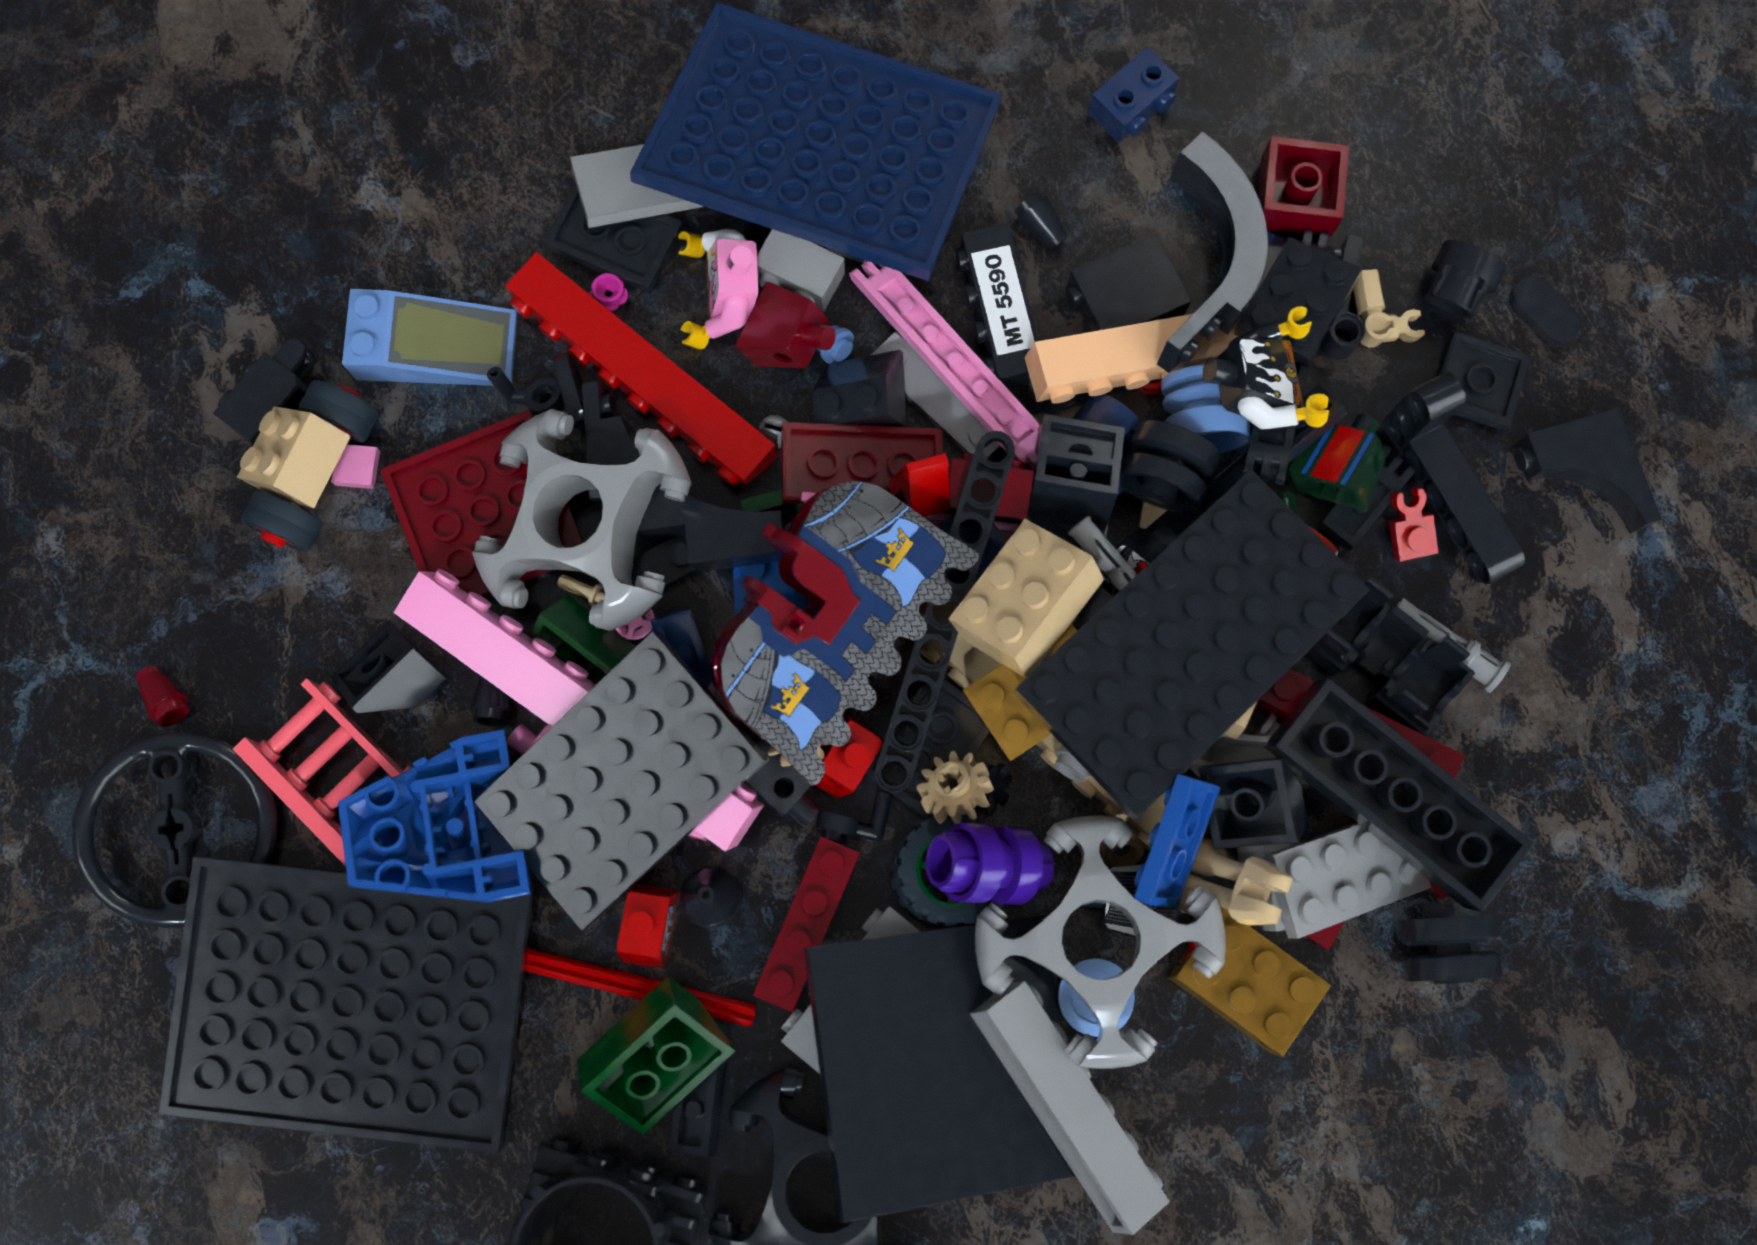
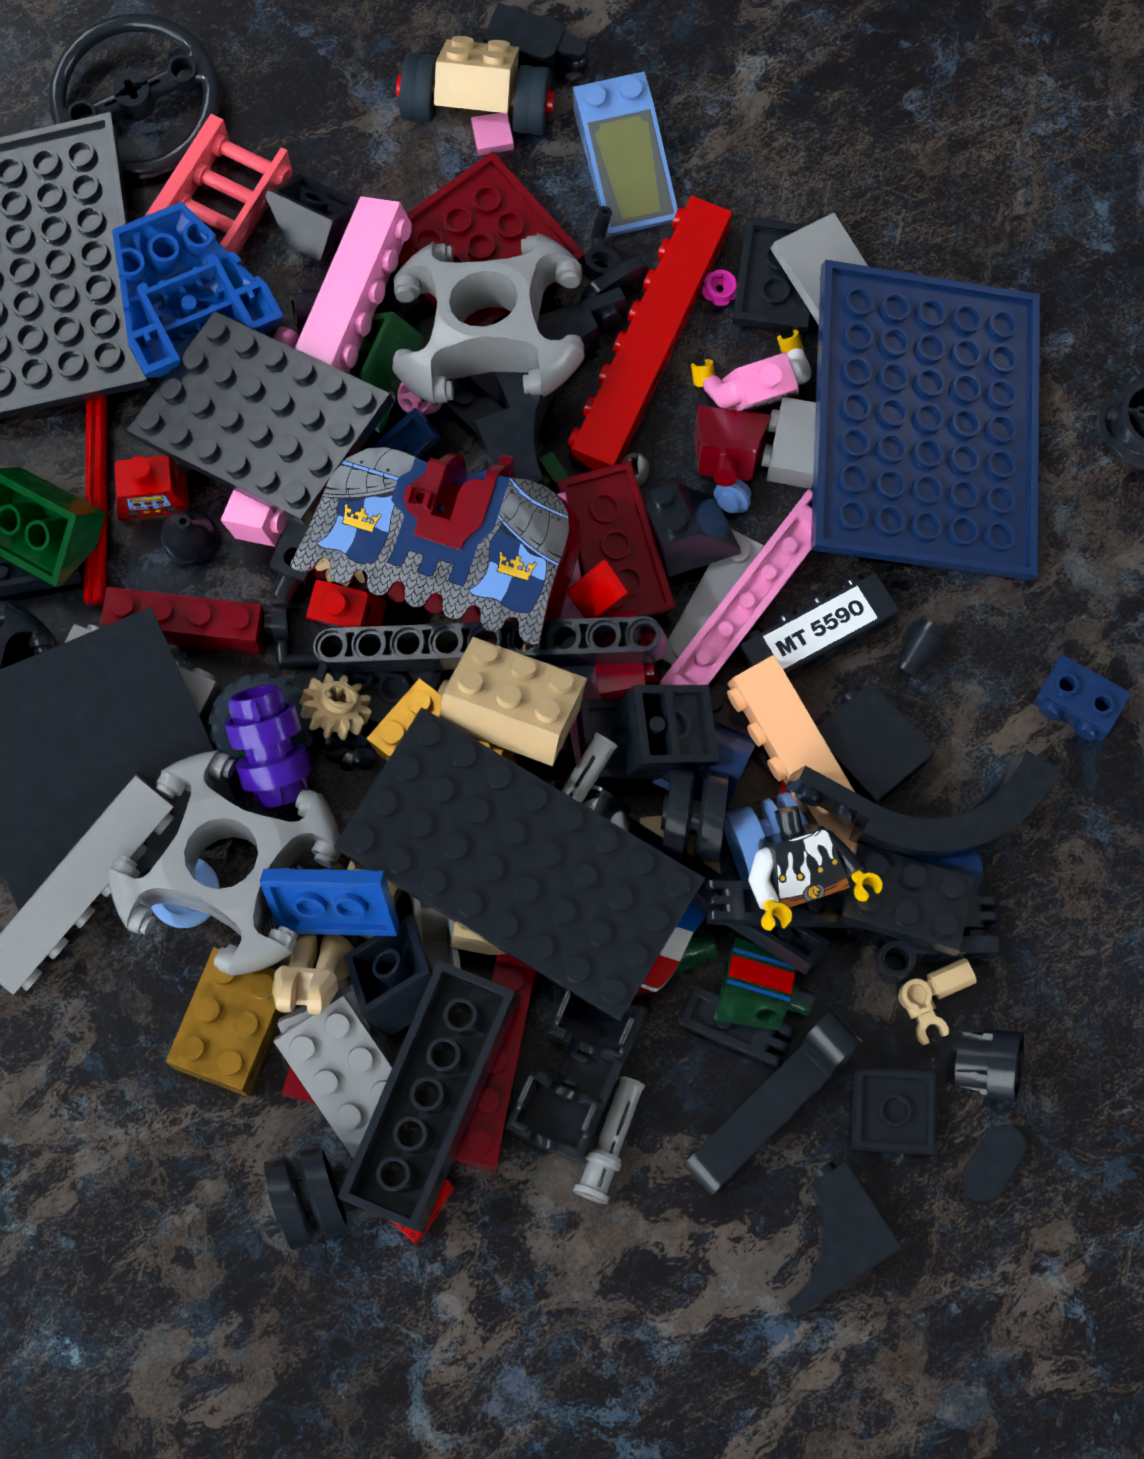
camera: 75 degrees right, 5 degrees down
(161, 697) = (243, 49): dark red cone -> none
(1303, 185) = (1036, 880): dark red brick -> none
(1414, 532) = (714, 1077): plate -> none

